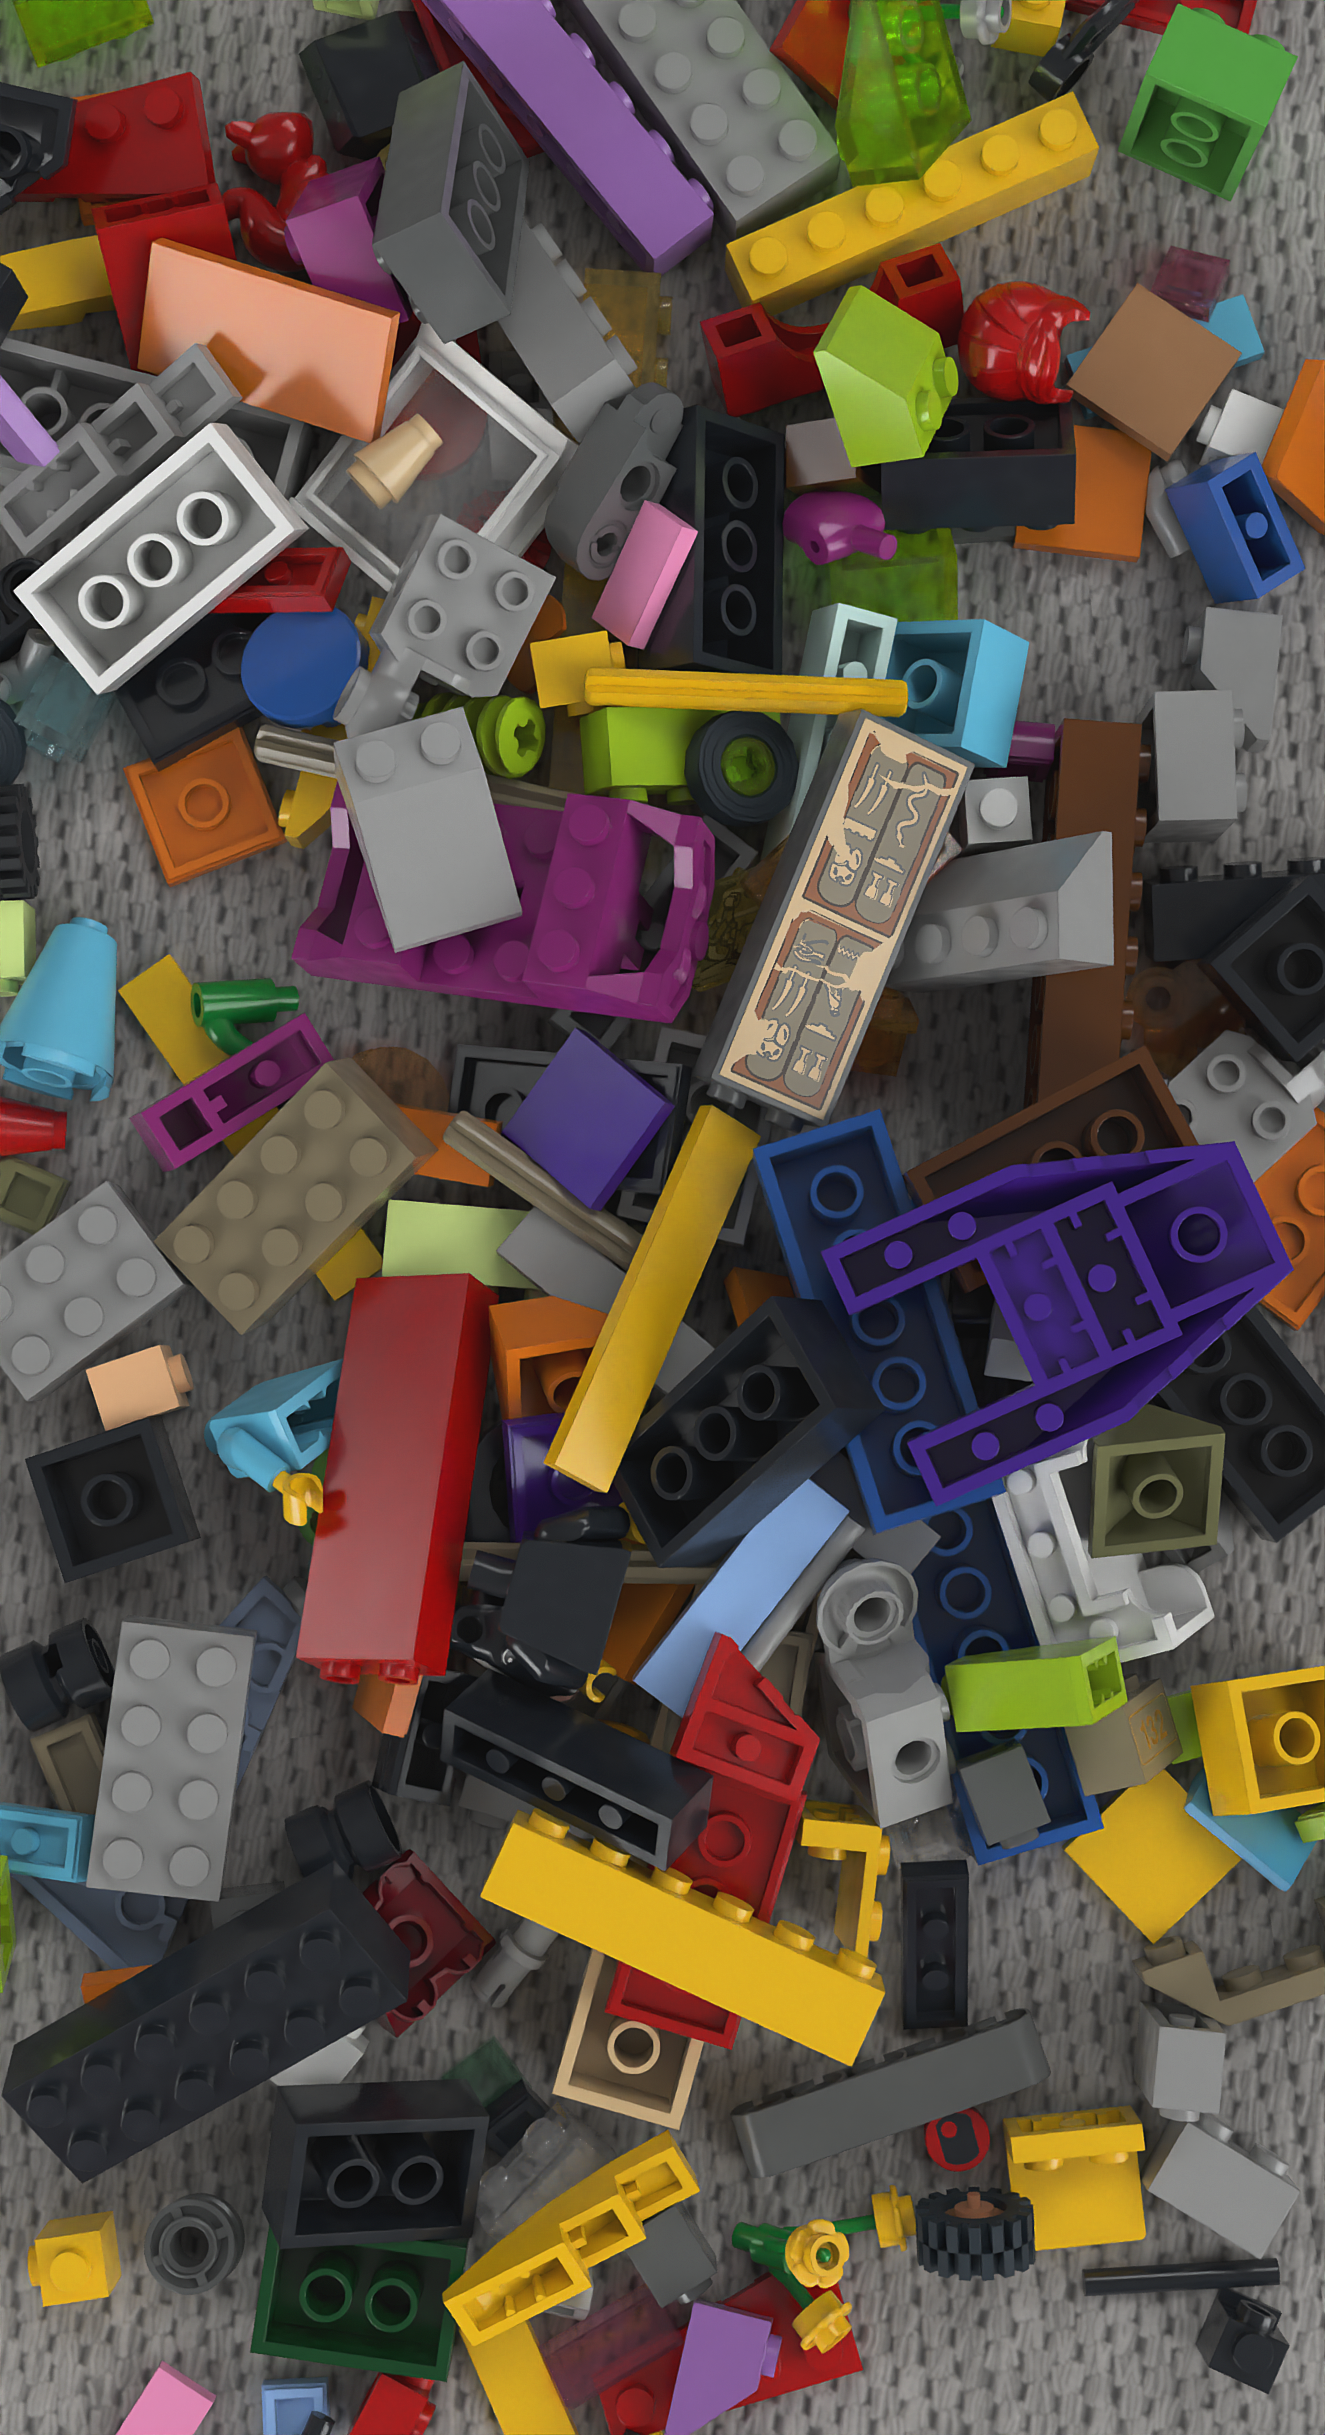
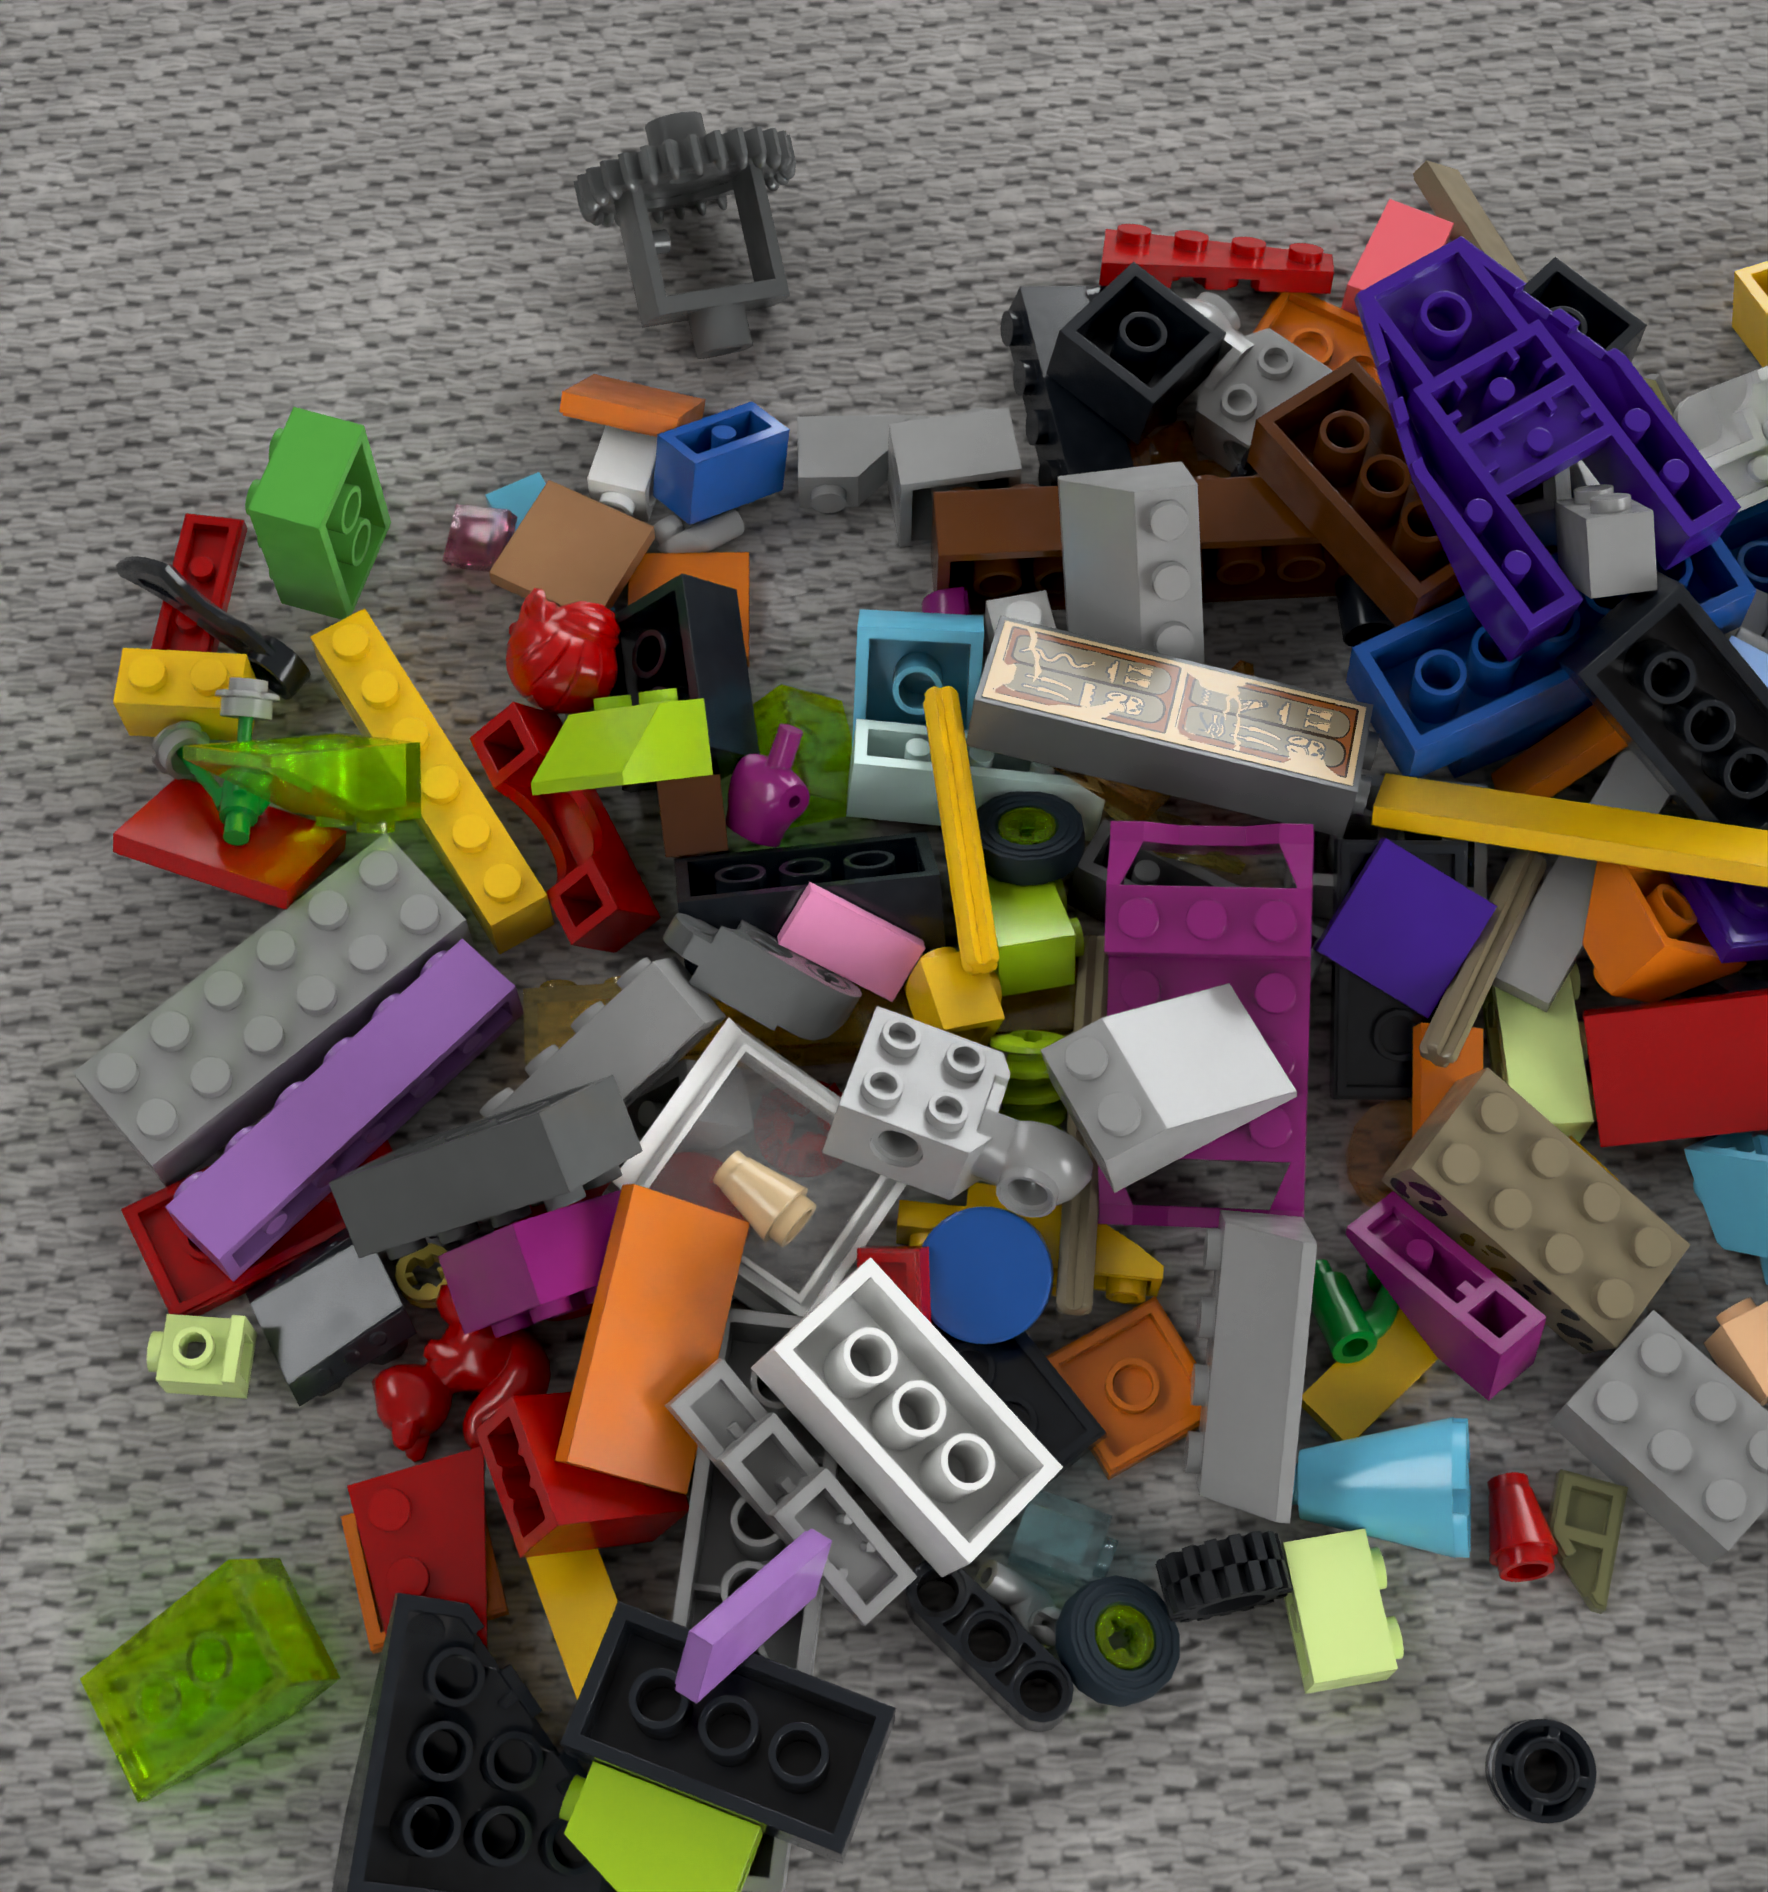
camera: 100 degrees left, 20 degrees down
(180, 891) = (1253, 1361): none -> light grey slope
(920, 1360) = (1606, 542): none -> light grey brick

